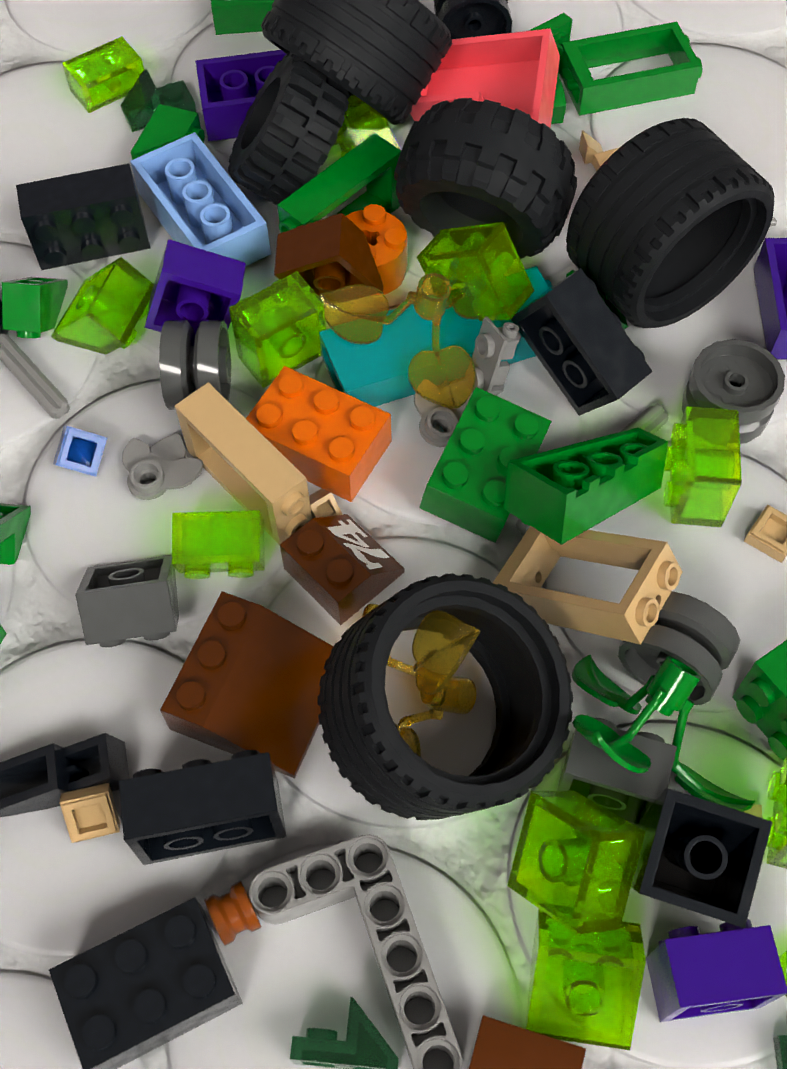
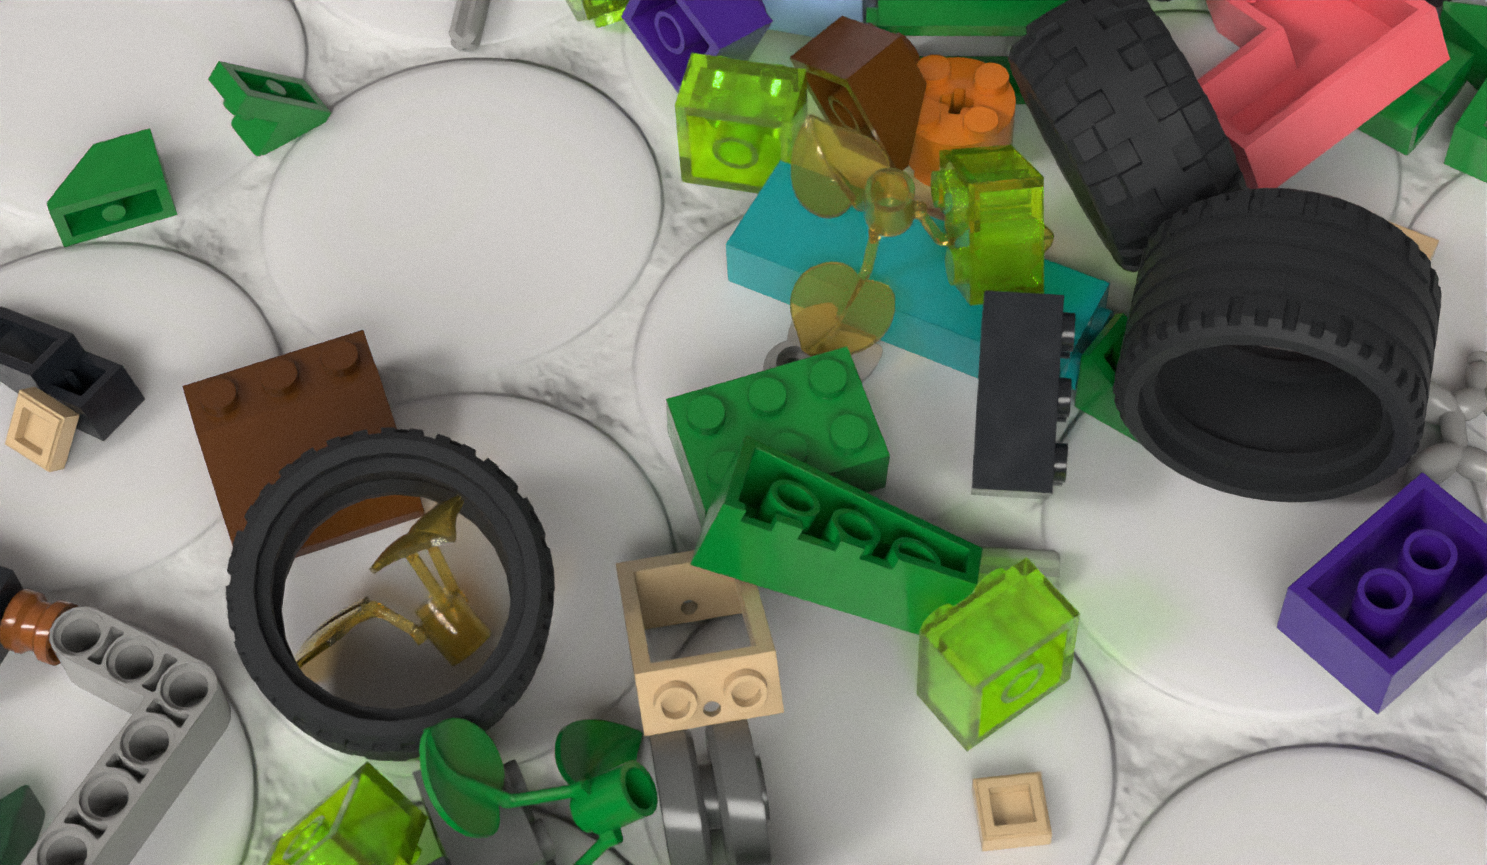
camera: 50 degrees right, 5 degrees down
(80, 450) = (430, 94): slope -> none
(128, 601) = (295, 272): dark grey slope -> none
(161, 462) = (481, 172): light grey plate -> none
(193, 359) = (614, 92): dark grey wheel -> none
(201, 807) = (116, 507): black brick -> none
(218, 543) = (433, 289): clear neon green brick -> none
(244, 462) = (538, 232): tan window -> none
(322, 431) = (658, 267): orange brick -> none
(323, 504) = (581, 349): tan piece -> none
(338, 564) = (523, 408): reddish brown slope -> none
(490, 348) = (925, 323): light grey hinge -> none
(588, 147) = (1397, 206): tan piece -> none
(739, 378) = (1153, 612): dark grey wheel -> none

